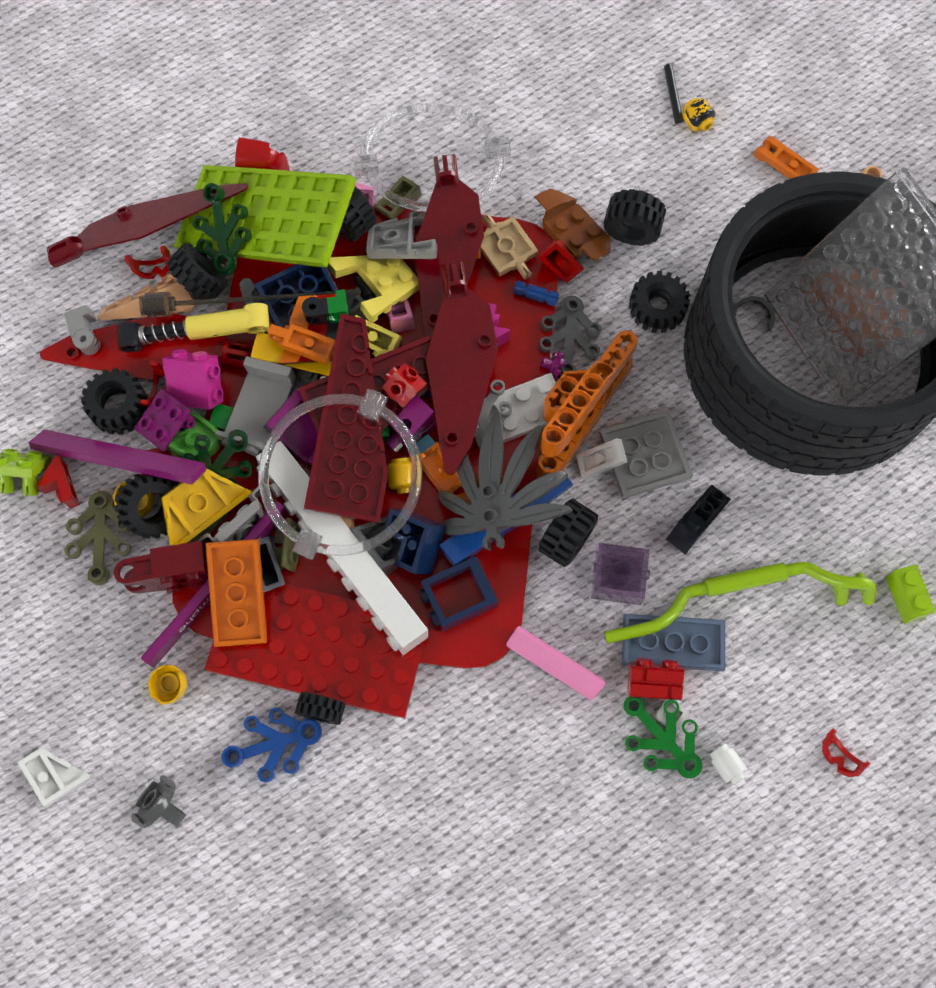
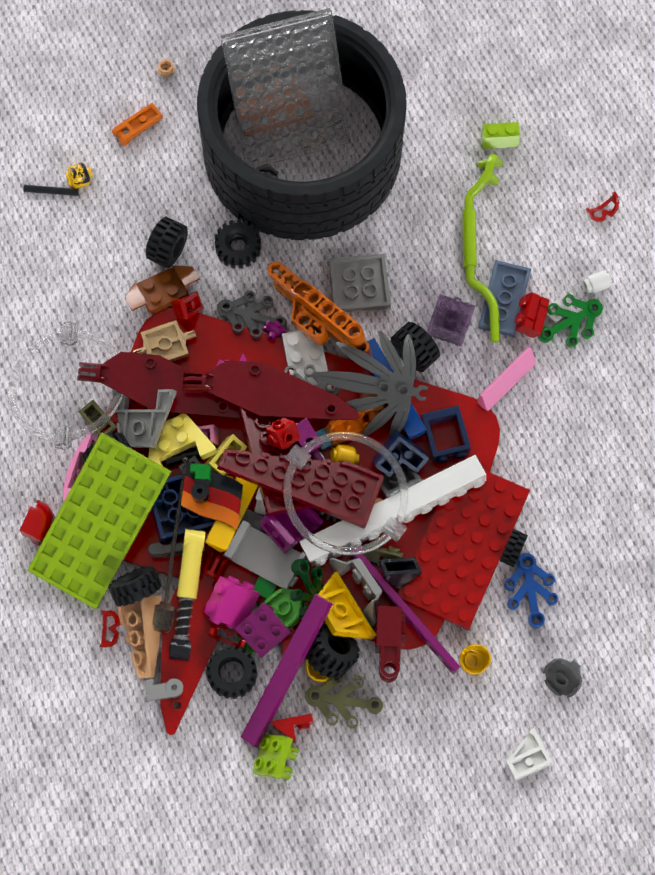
camera: 80 degrees left, 0 degrees up
(134, 223) = (70, 628): dark red wing -> none
(222, 232) = (109, 557): dark green plant -> none
(236, 592) = (420, 588): orange tile -> none
(303, 342) = (226, 505): orange hinge -> none
(536, 293) = (210, 330): blue axle -> none
(601, 458) = (360, 309): white plate -> none
(698, 519) = (418, 258): black slope -> none

